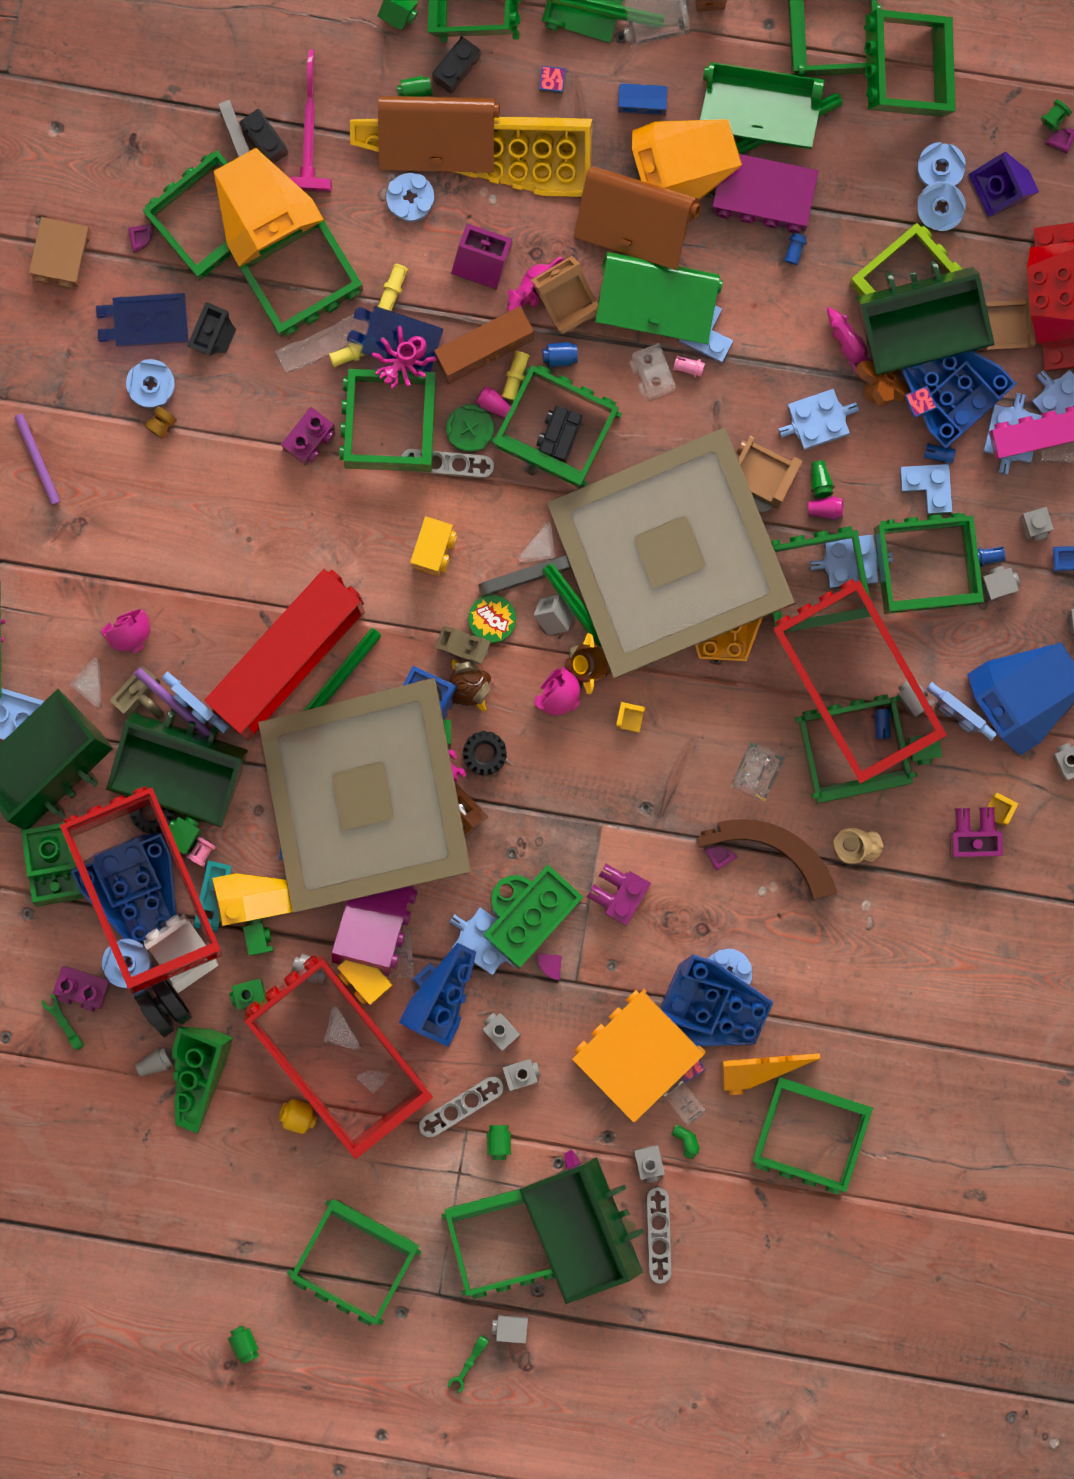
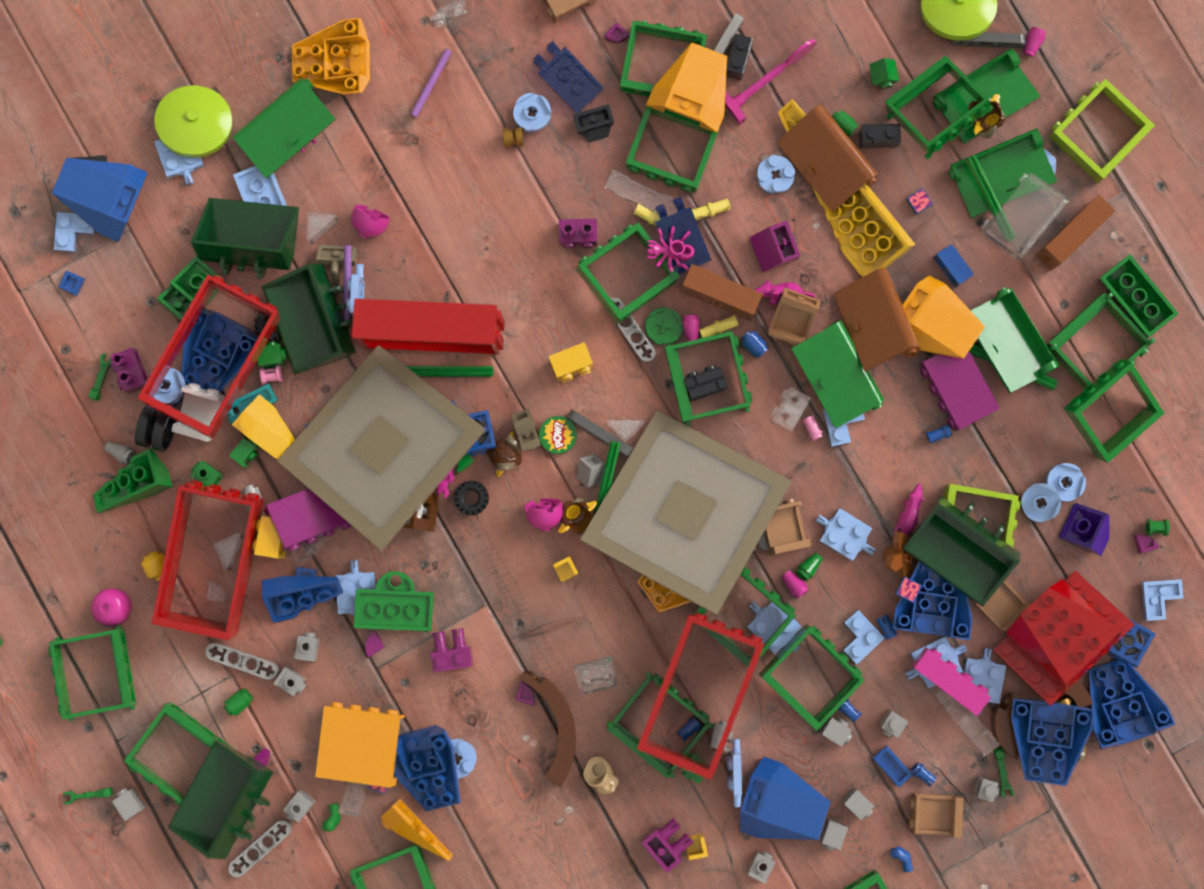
camera: 50 degrees right, 0 degrees up
(302, 1193) = (111, 607): none -> dark pink cylinder

